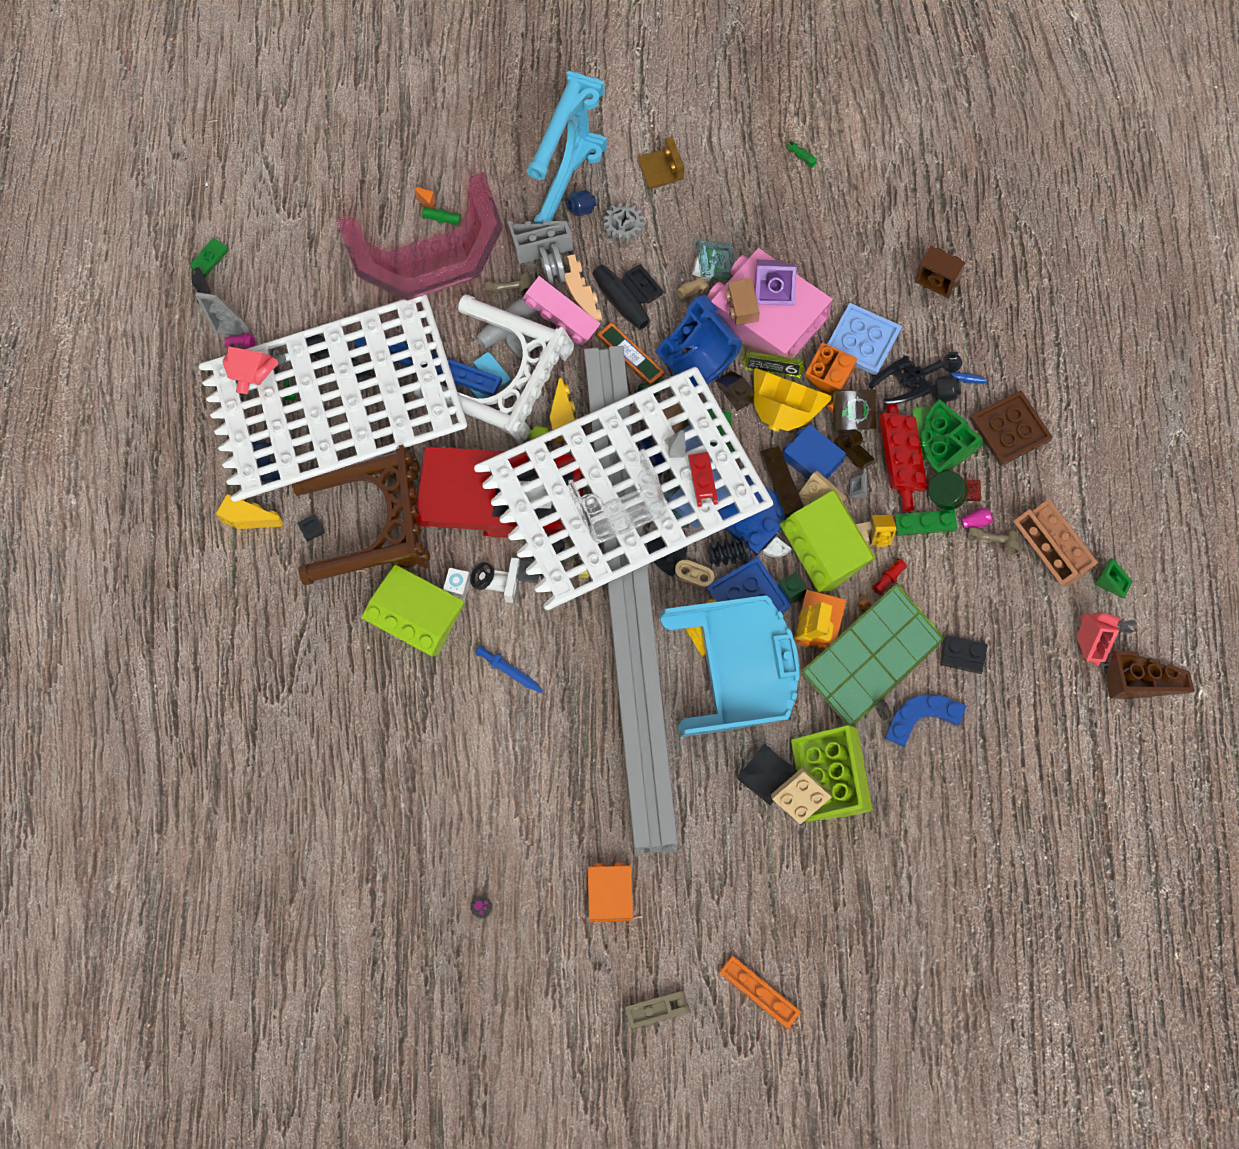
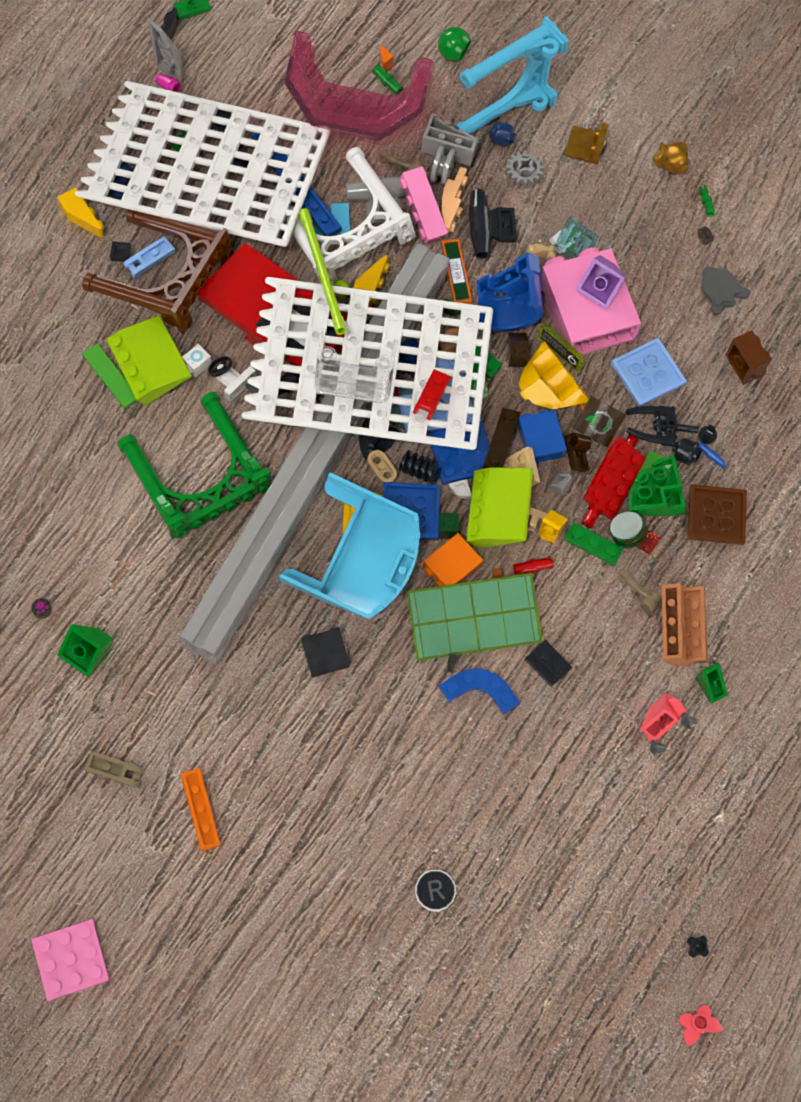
camera: 25 degrees right, 0 degrees up
(249, 366) = (157, 102): coral torso -> none
(342, 515) = (149, 257): none -> light blue plate
(386, 649) = (110, 376): none -> bright green tile
(478, 146) = (453, 43): none -> green helmet
(497, 662) = (185, 438): blue sword -> none
(541, 742) = (179, 522): none -> green arch
(549, 916) = (85, 648): none -> green slope
(572, 464) = (337, 319): none -> lime piece
(610, 893) = (142, 661): orange brick -> none
(677, 445) = (430, 356): light grey slope -> none
(743, 302) = (565, 280): medium nougat brick -> none
(745, 133) = (672, 157): none -> pearl gold piece
(801, 796) = (337, 683): tan plate -> none
(815, 623) = (440, 559): yellow piece -> none
(823, 185) = (705, 235): none -> clear smoke tile
(831, 369) = (604, 379): orange slope -> none
(838, 765) = (375, 685): lime slope -> none
(870, 225) = (721, 288): none -> dark grey tile
(978, 518) = (636, 566): dark pink cone -> none
(1015, 922) = (435, 890): none -> black tile
(1139, 677) = (675, 771): reddish brown wedge -> none

